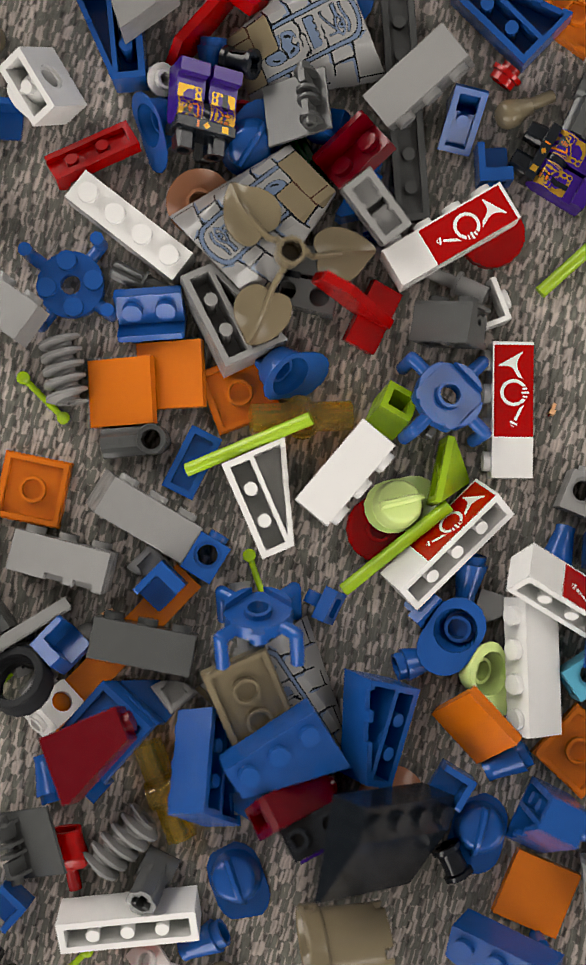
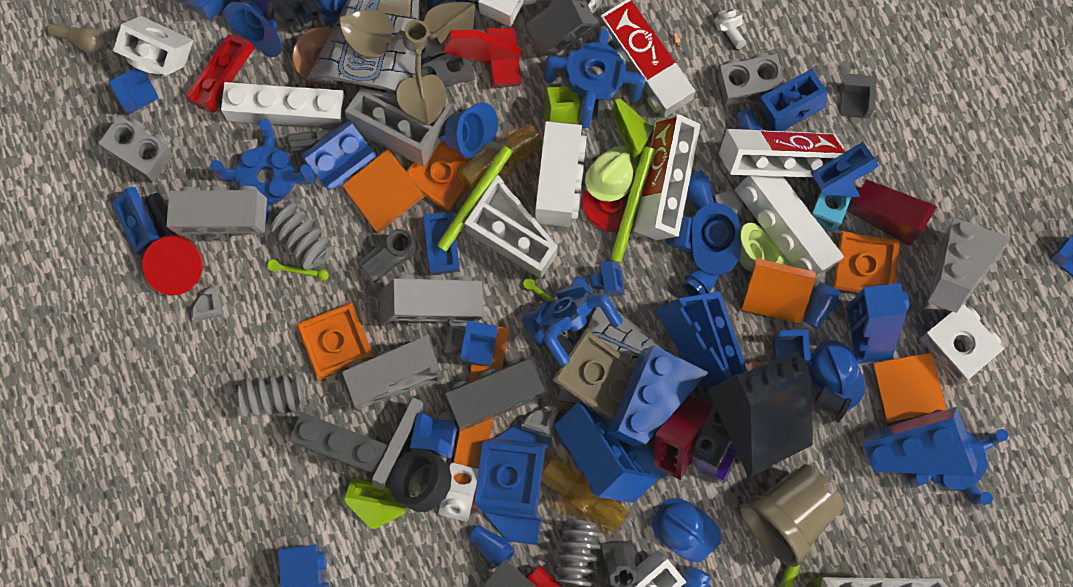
camera: 30 degrees left, 10 degrees down
(86, 751) = (507, 492): dark red slope -> none
(122, 392) = (355, 225): orange tile -> none
(193, 563) = (502, 314): blue brick -> none

